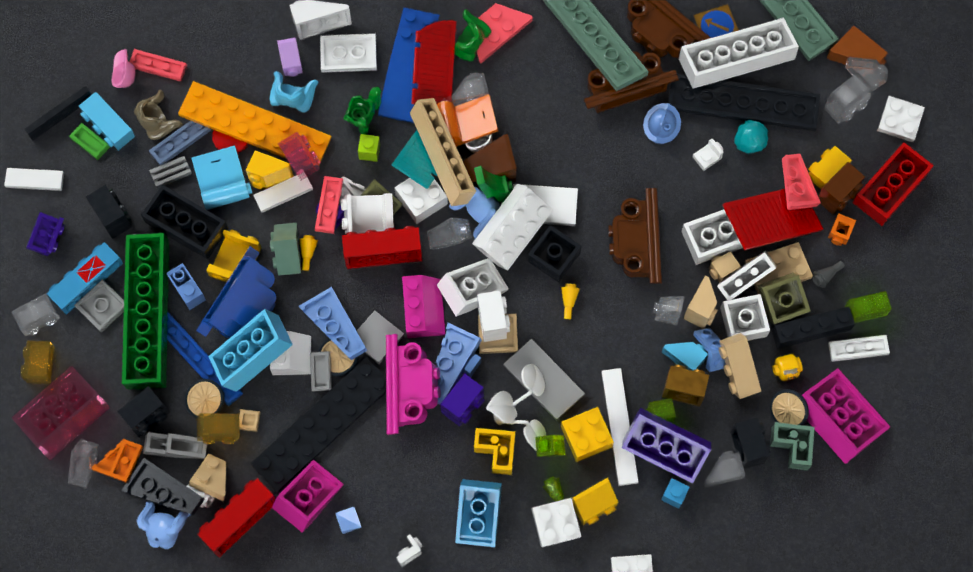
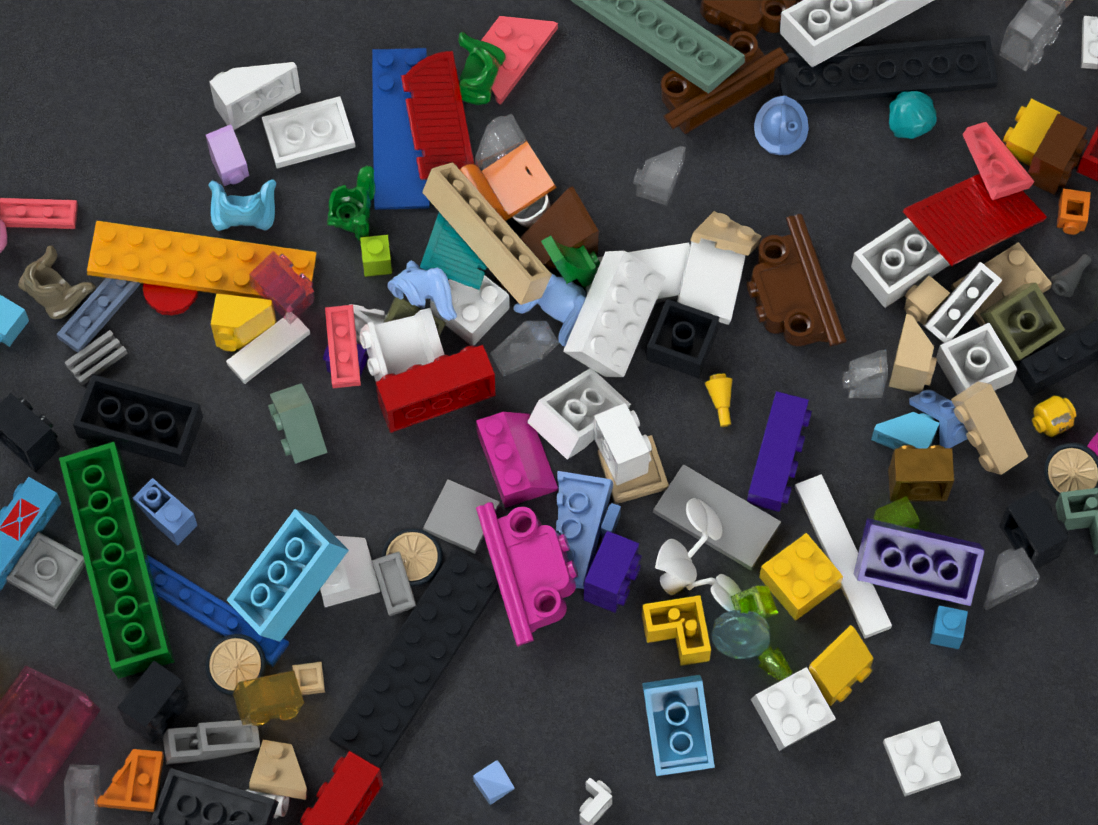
camera: 15 degrees left, 5 degrees down
(221, 178) = (172, 348): medium azure door -> none
(230, 254) = (225, 456): yellow panel -> none
(241, 297) = (251, 507): blue brick -> none
(307, 496) = (424, 763): dark pink slope -> none
(308, 247) = (326, 413): yellow cone -> none
(333, 320) = (392, 507): medium blue wing -> none
(389, 178) = (424, 285): none -> light blue hair
(535, 463) = (741, 634): none -> clear light blue tile
(571, 138) = (660, 175): none -> clear slope
(585, 217) = (711, 279): none -> white tile
(596, 345) = (778, 450): none -> dark purple brick
(603, 189) = (727, 234): none -> tan wing
(709, 154) = (859, 153): white bracket -> none

